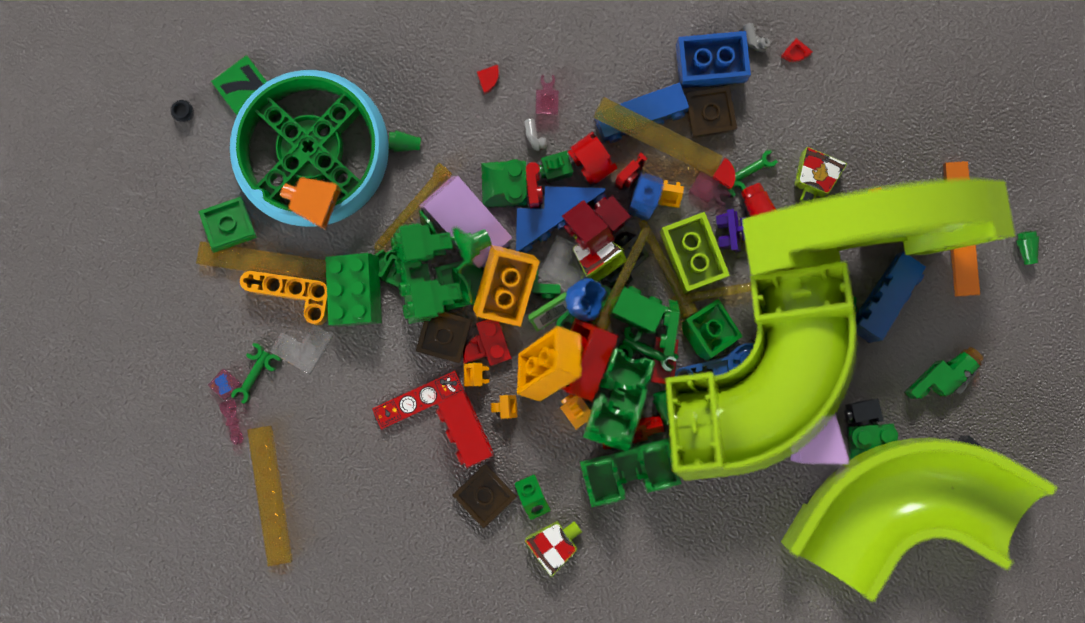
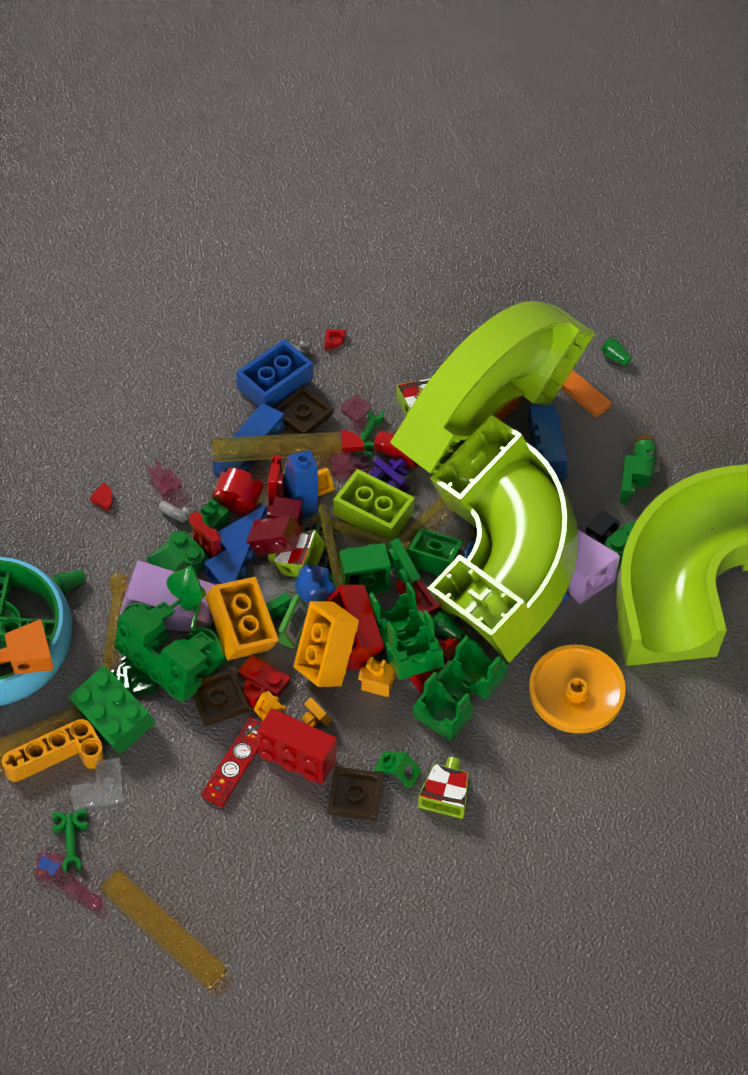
camera: 40 degrees left, 30 degrees down
(631, 344) = (392, 596): green bar -> none
(720, 541) = (577, 688): none -> light orange dish
(755, 143) = (356, 409): none -> clear pink tile

